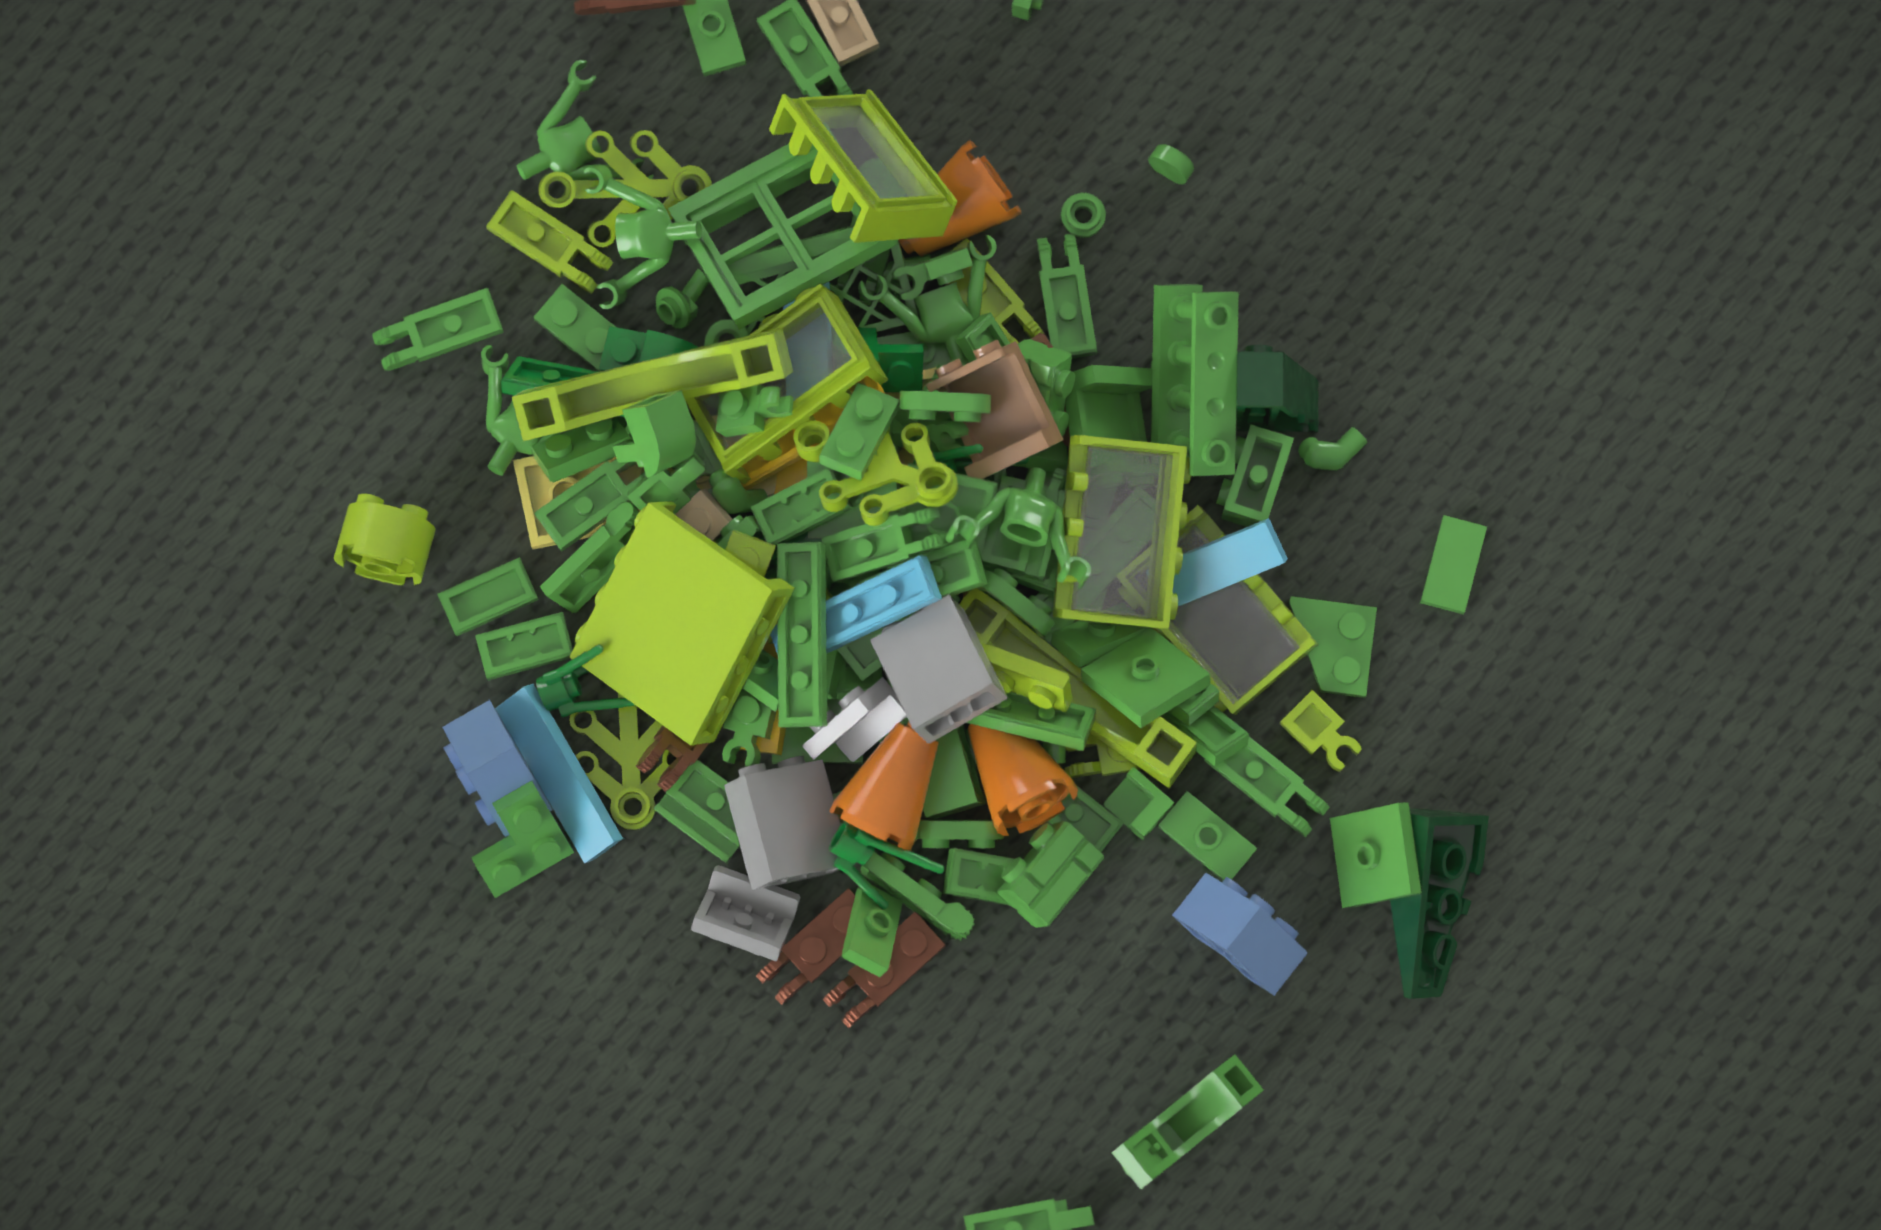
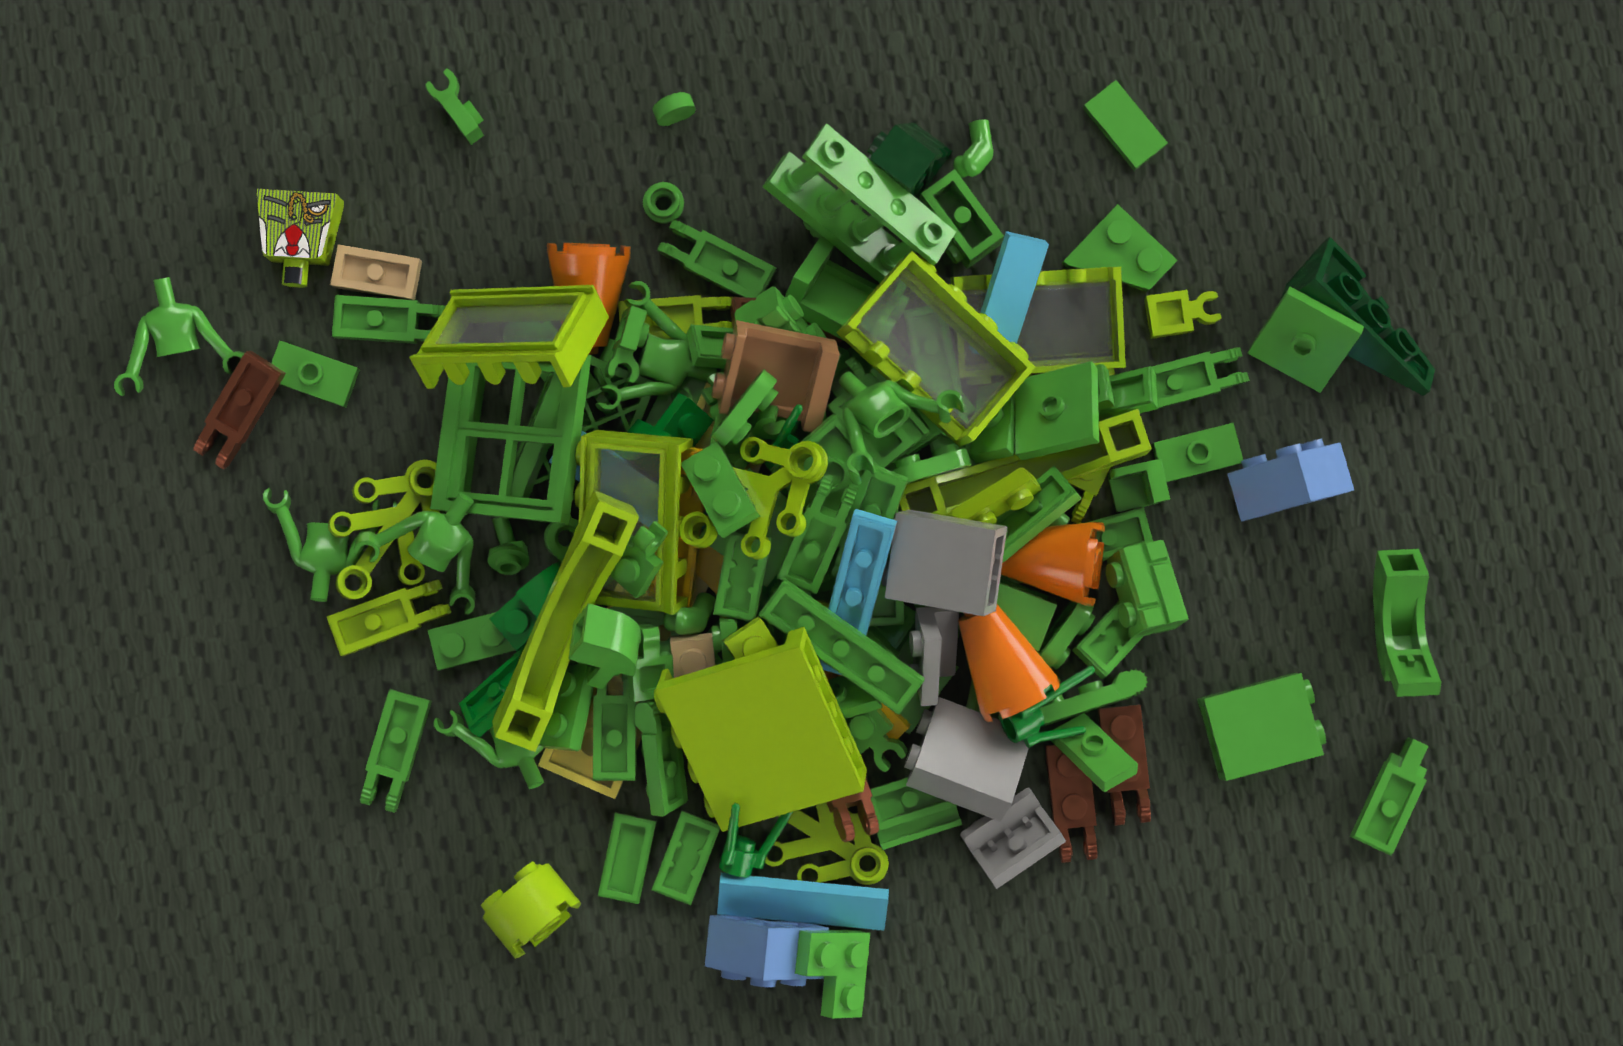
camera: 60 degrees left, 5 degrees up
(1004, 1064) = (1262, 726): none -> bright green brick

